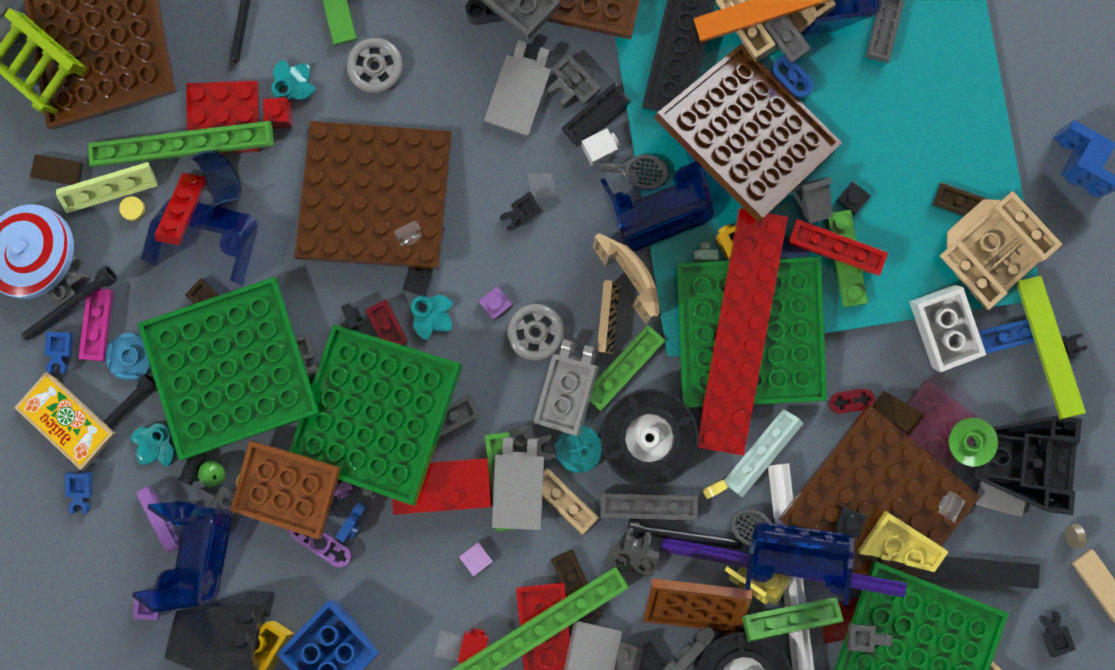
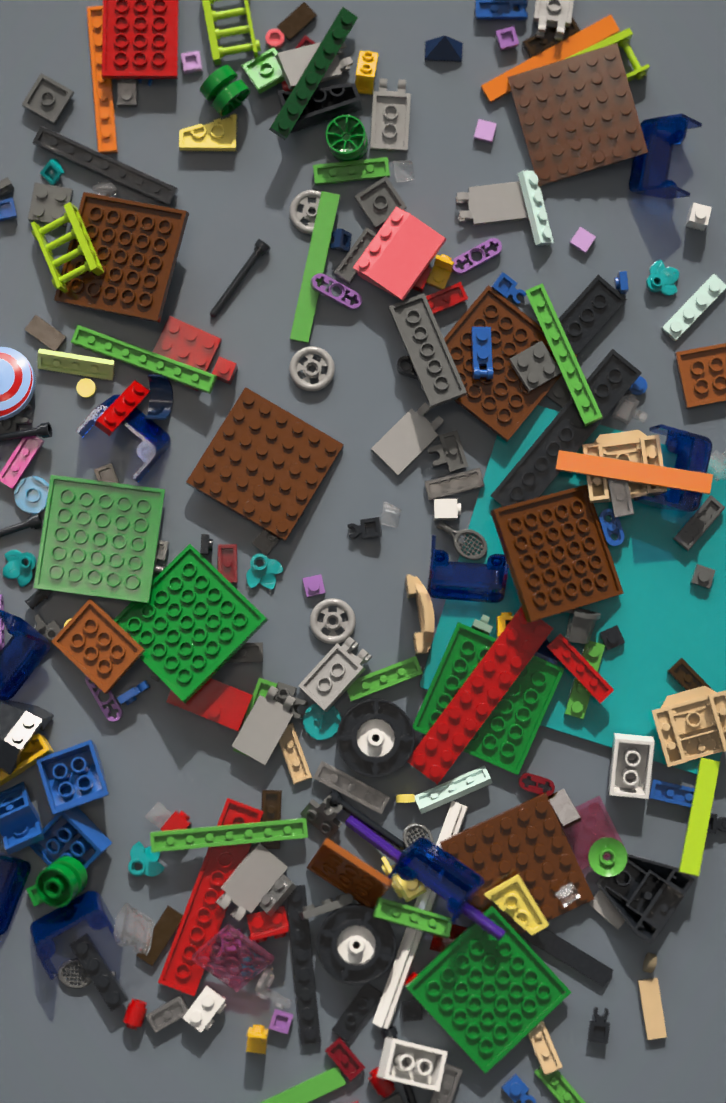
camera: 25 degrees right, 0 degrees up
(211, 473) = (50, 608): bright green piece -> none
(294, 78) = (248, 349): teal plate -> none
(343, 490) = (138, 667): medium lavender plate -> none
(408, 234) = (275, 506): clear plate -> none
(476, 559) = (209, 763): lavender tile -> none
(608, 317) = (390, 636): tan tile -> none
(849, 522) = (488, 869): black plate -> none
(864, 638) = (456, 955): dark grey plate -> none
(918, 82) = (703, 576): none -> dark grey plate

